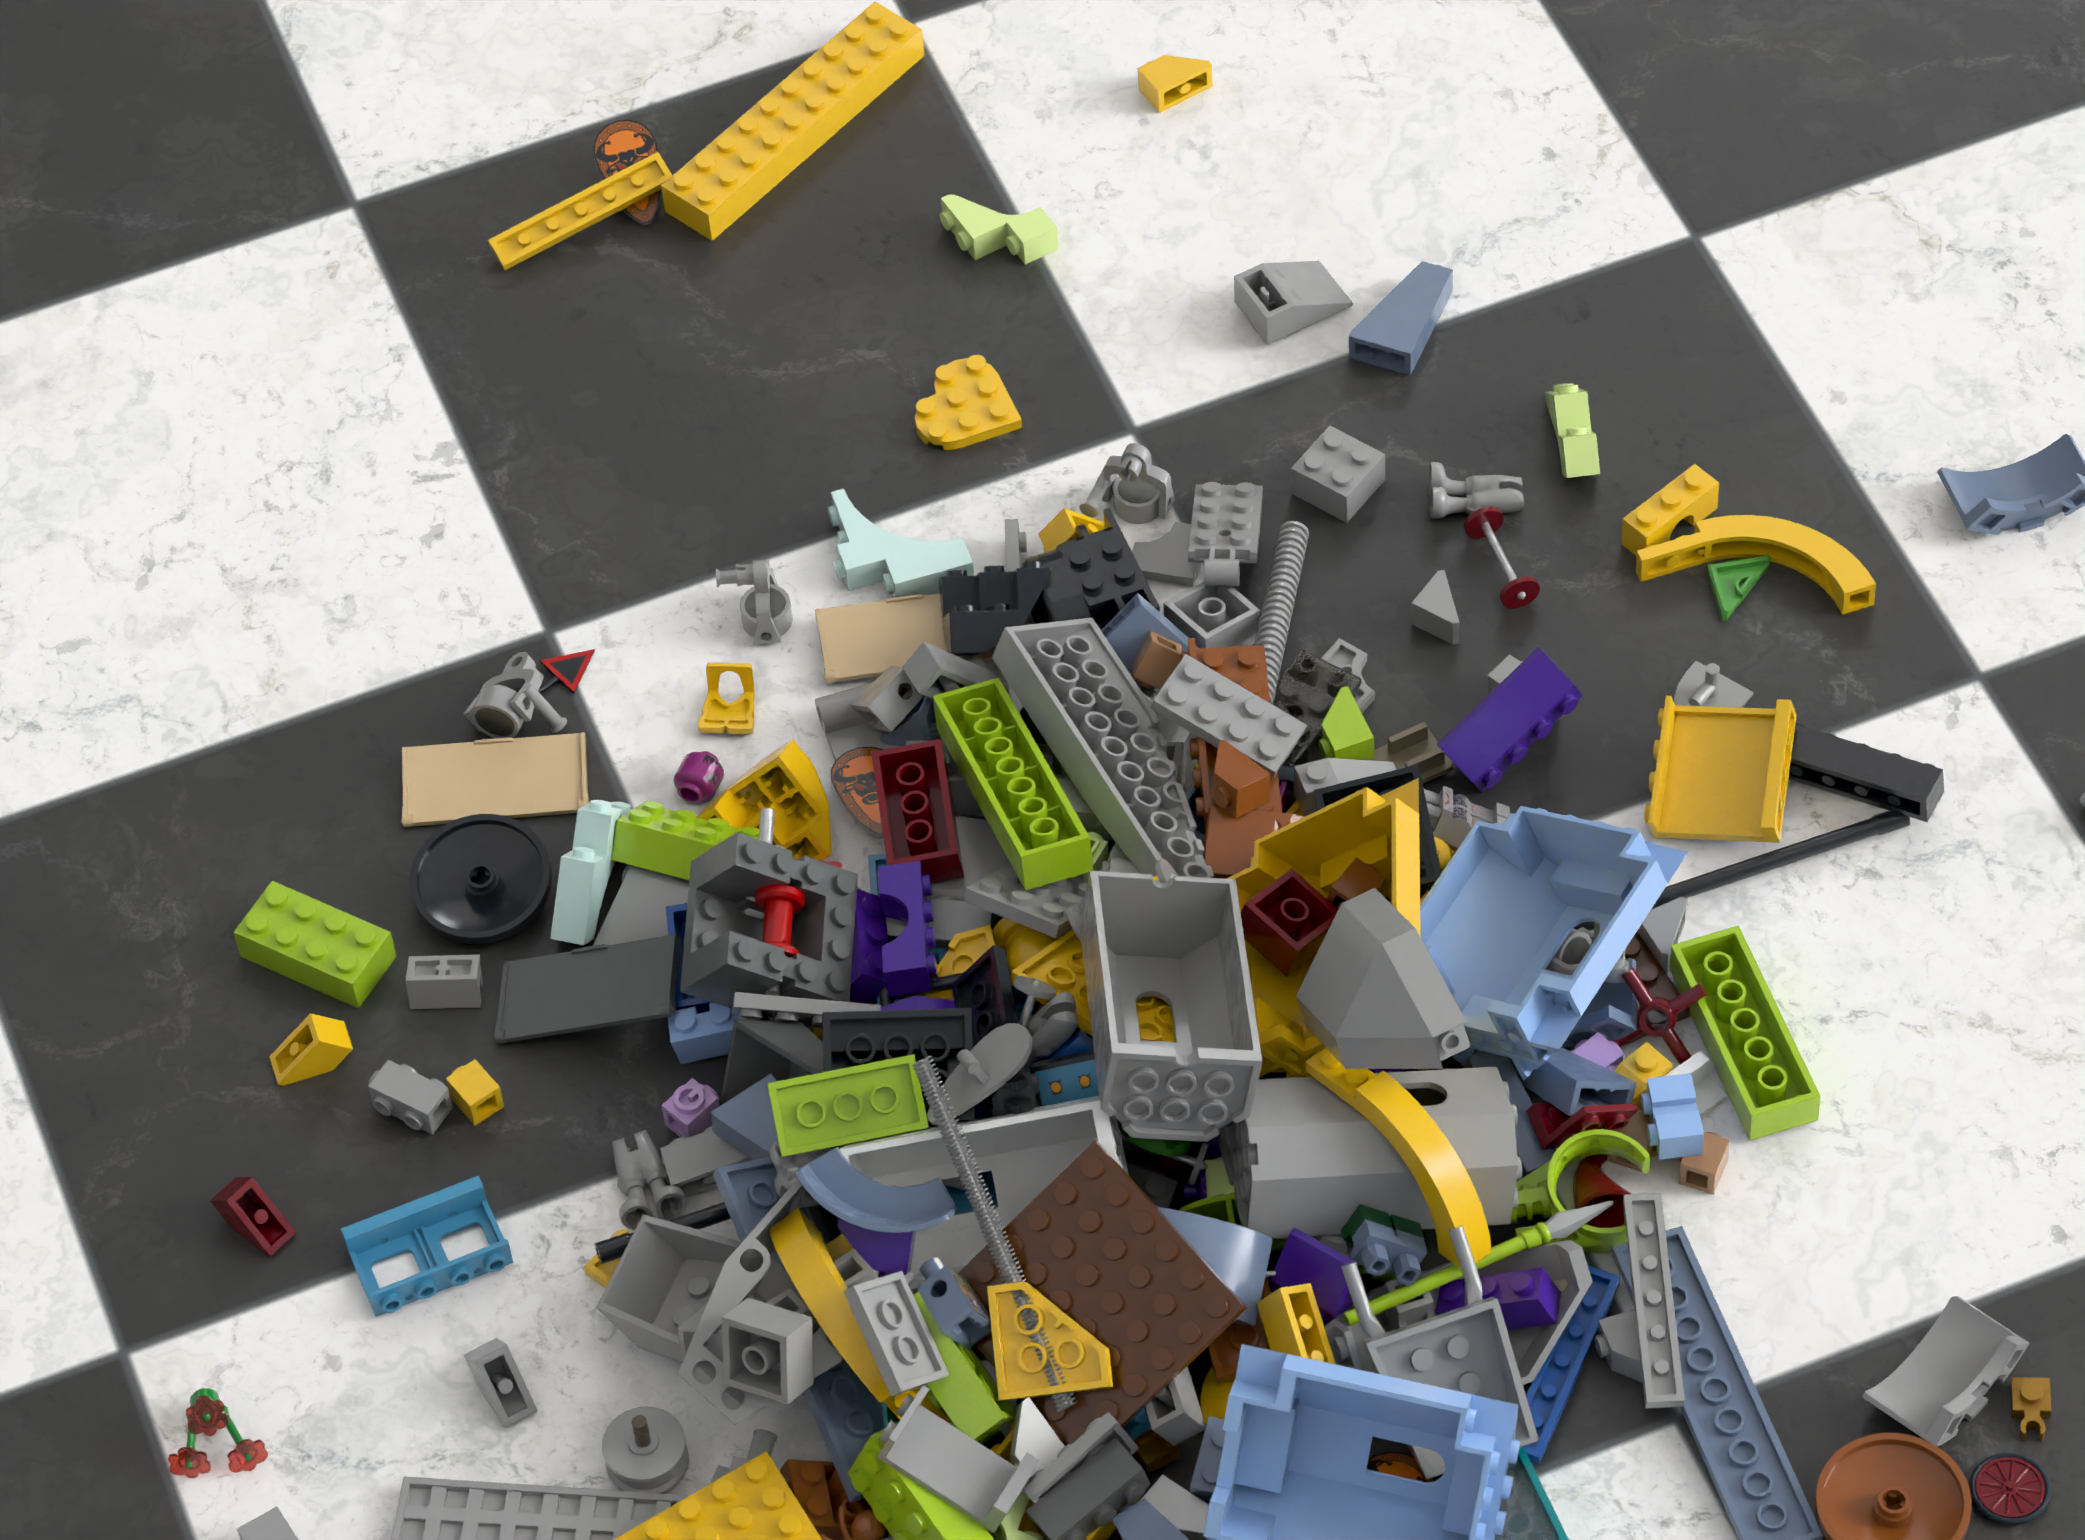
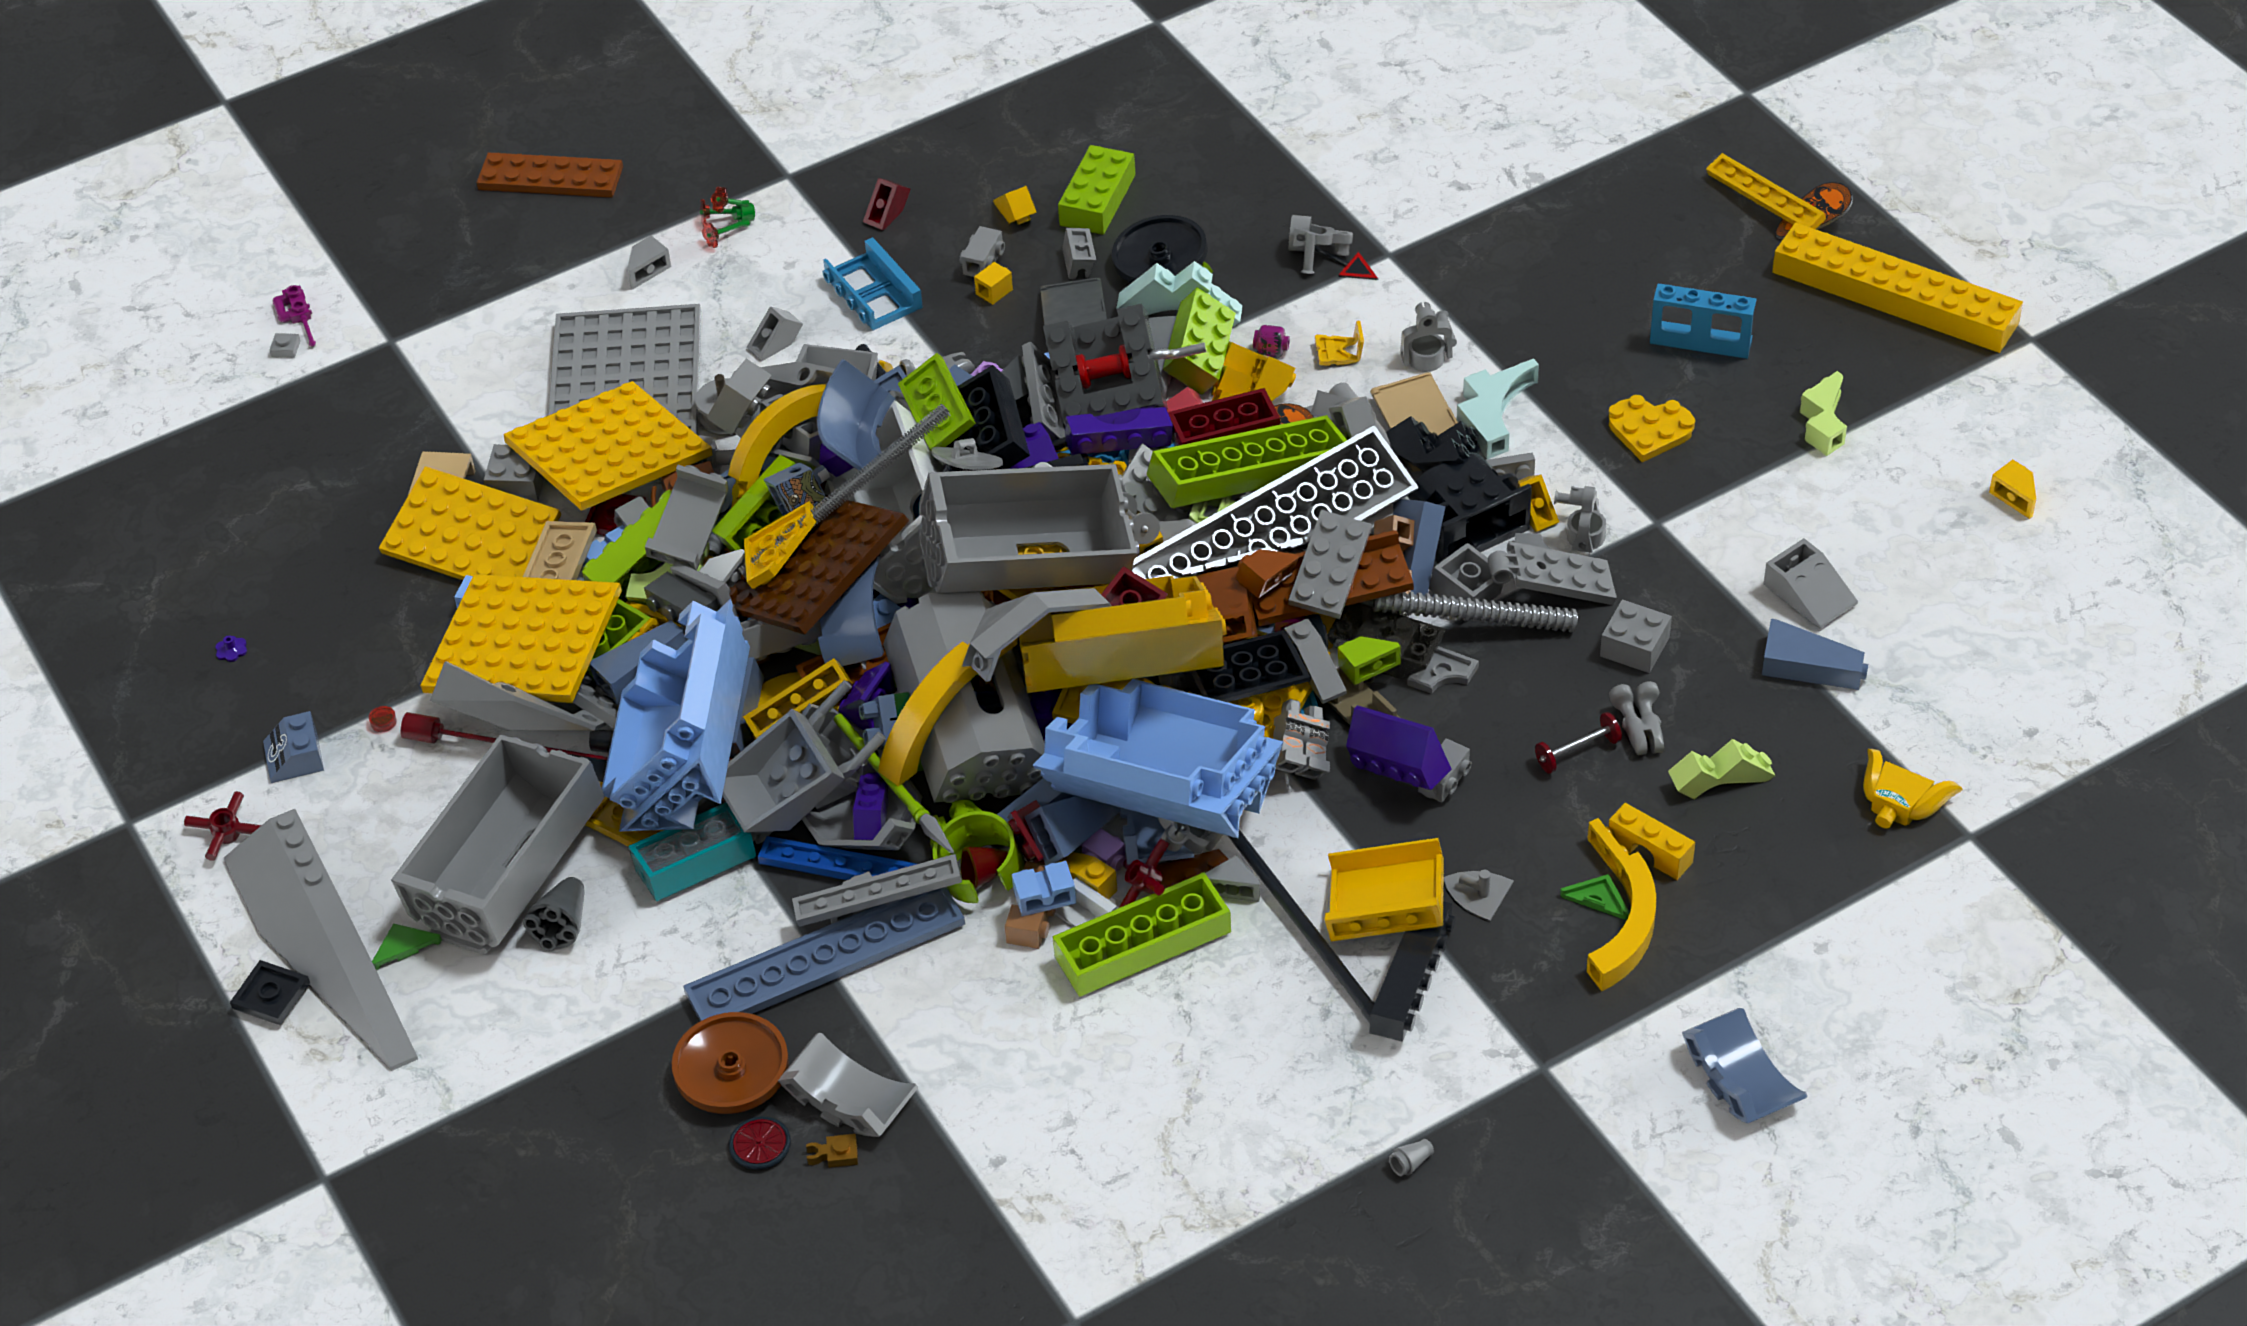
camera: 80 degrees right, 5 degrees down
(494, 778) = (1252, 249): tan door -> none
(830, 305) = (1699, 334): none -> dark azure window
(896, 1333) = (755, 453): light grey plate -> none
(1435, 610) = (1520, 712): light grey slope -> none
(1633, 279) = (1902, 794): none -> yellow torso

